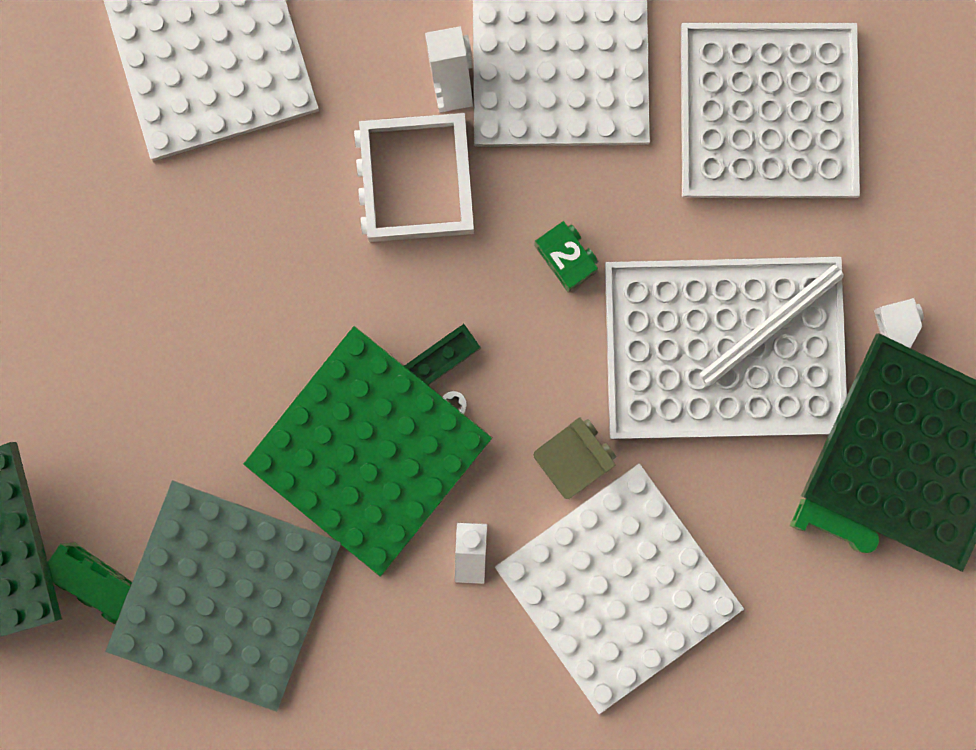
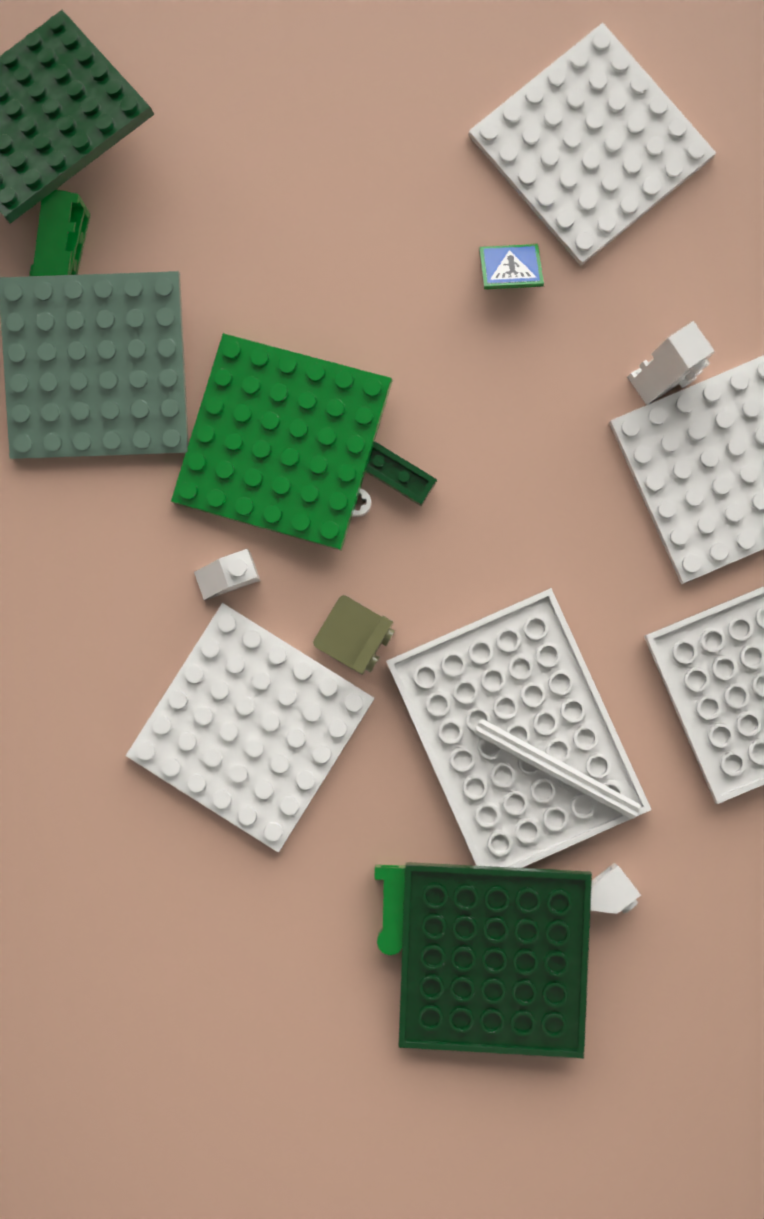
camera: 70 degrees right, 0 degrees up
(295, 174) = (511, 266): none -> piece
(366, 194) = (576, 422): white window -> none
(566, 255) = (541, 548): green brick -> none

